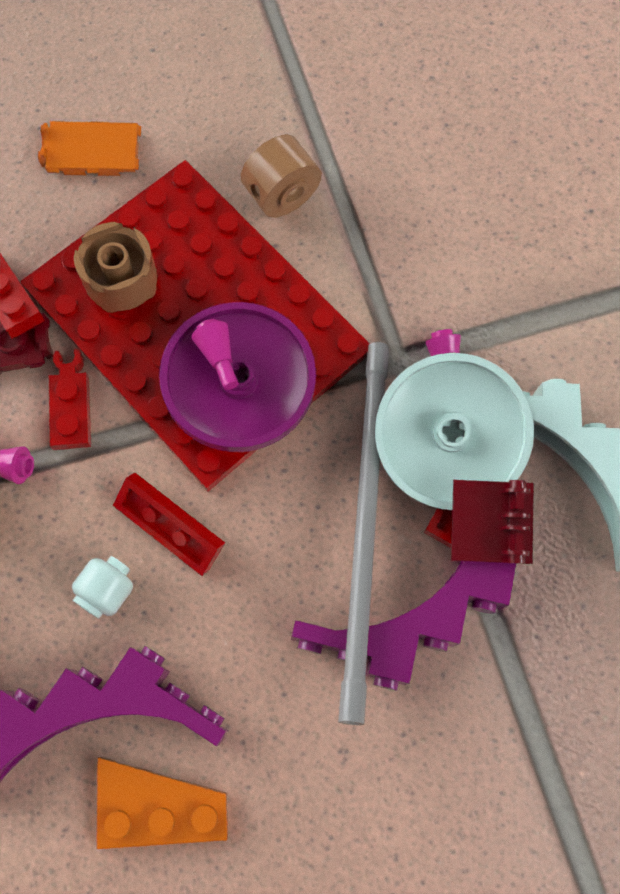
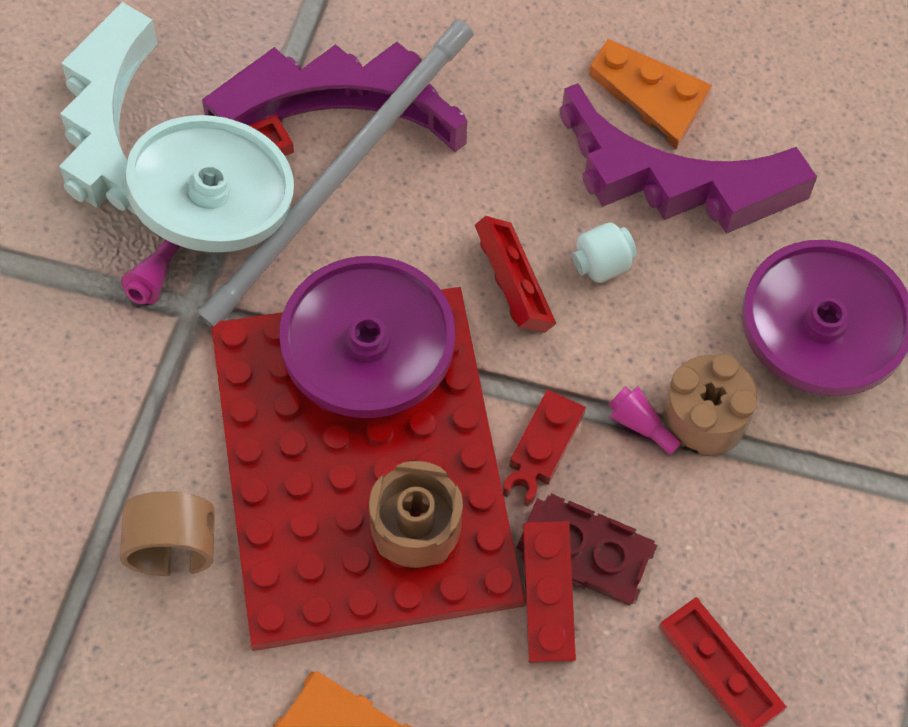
camera: 145 degrees left, 10 degrees down
(214, 342) = (372, 361): dark pink cone -> none
(492, 521) = (238, 95): dark red hinge -> none

